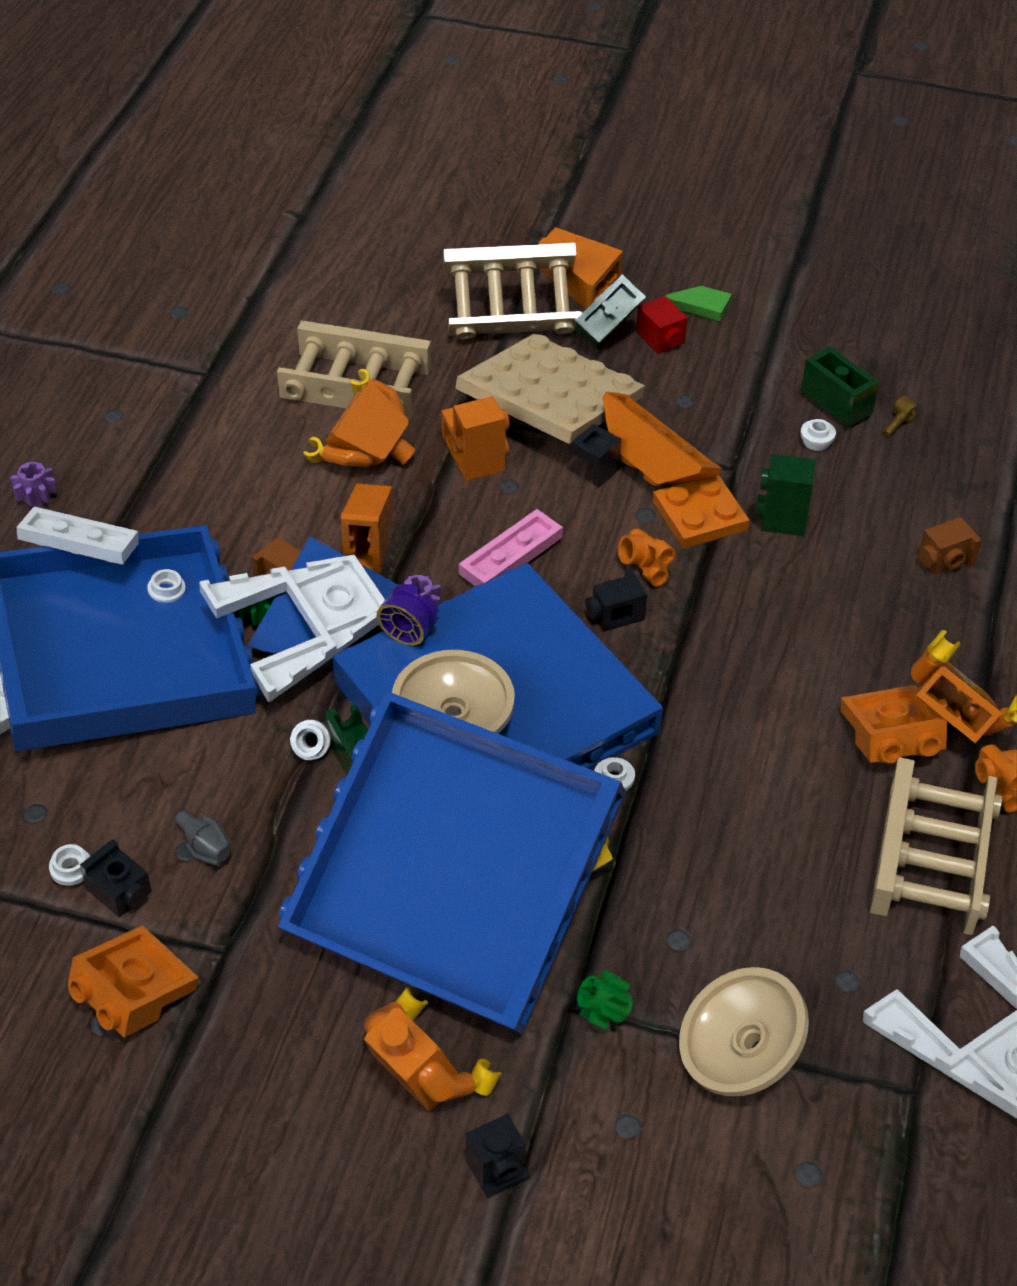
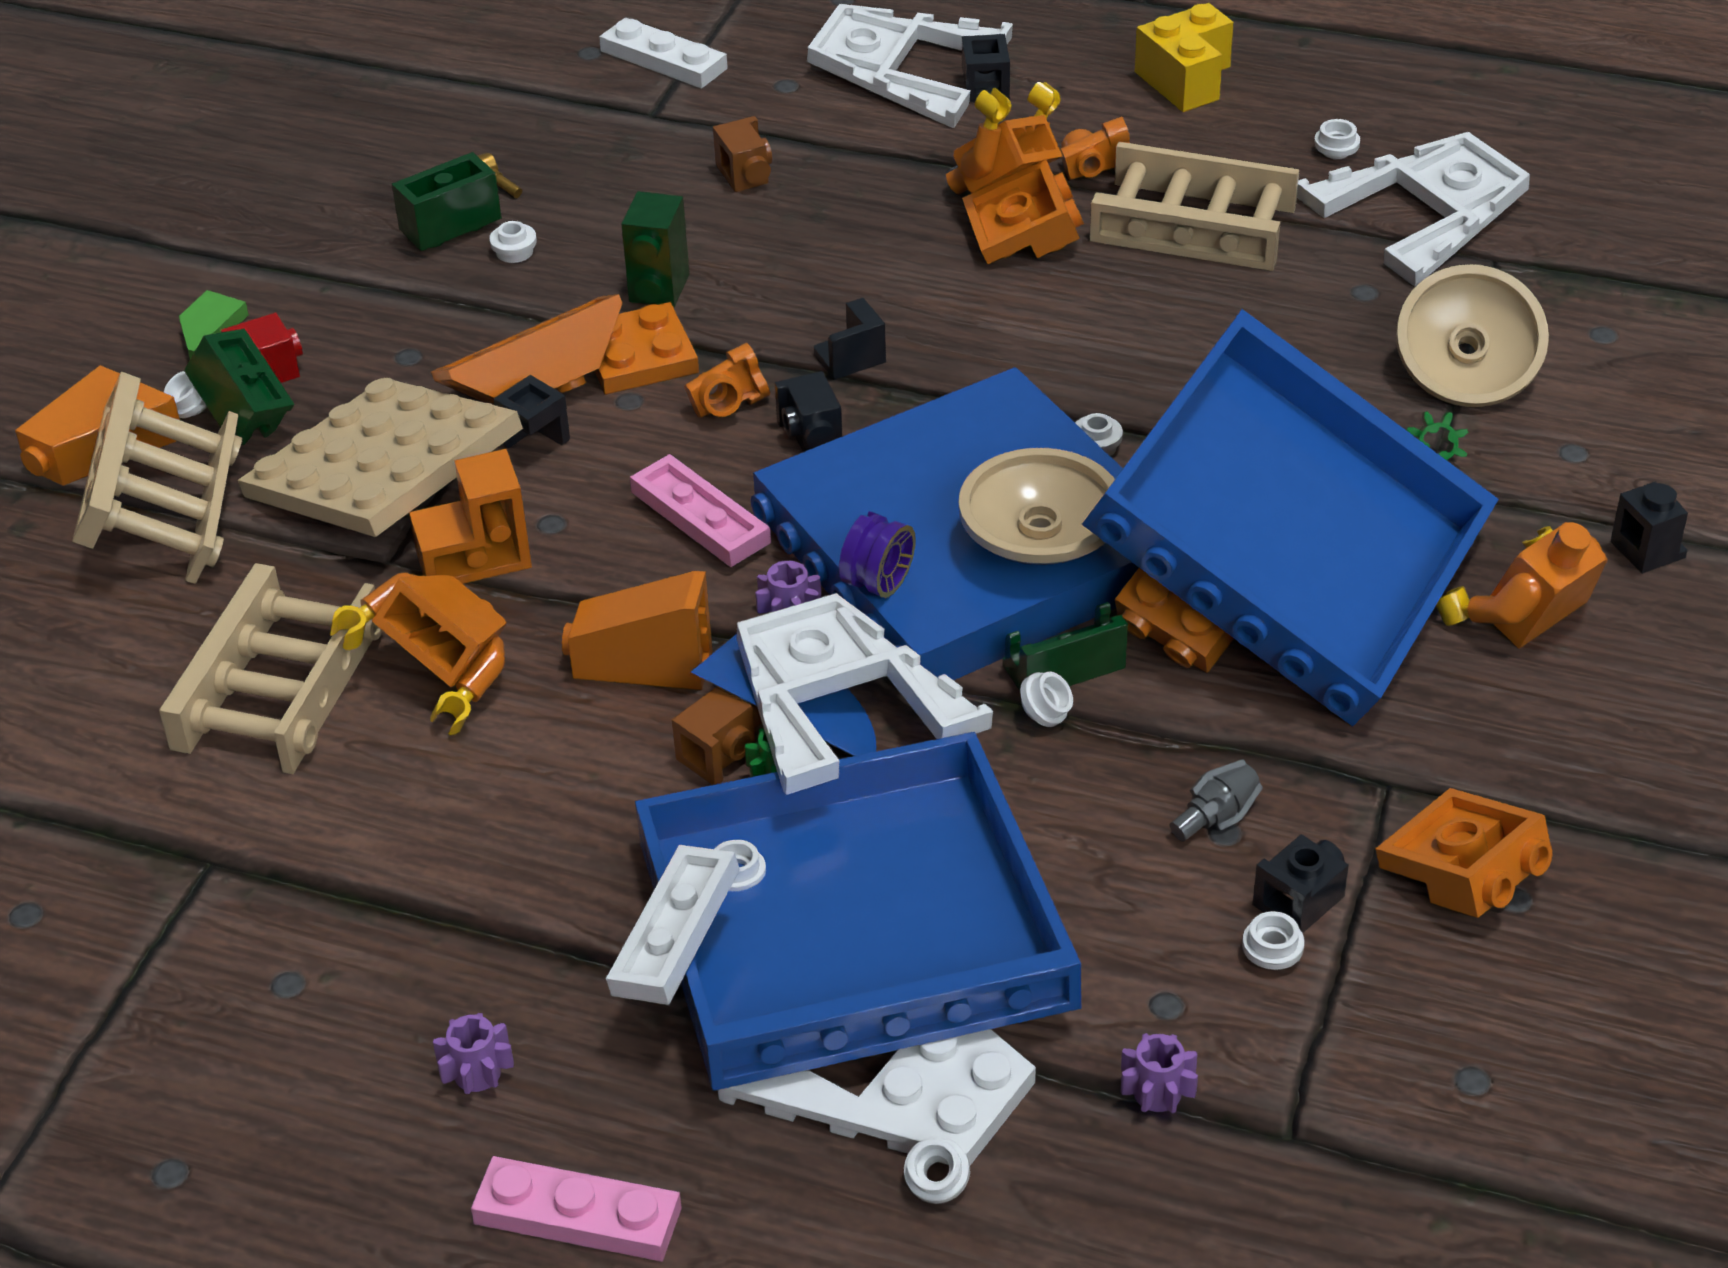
camera: 85 degrees left, 5 degrees down
(712, 627) = (856, 347): none -> black panel

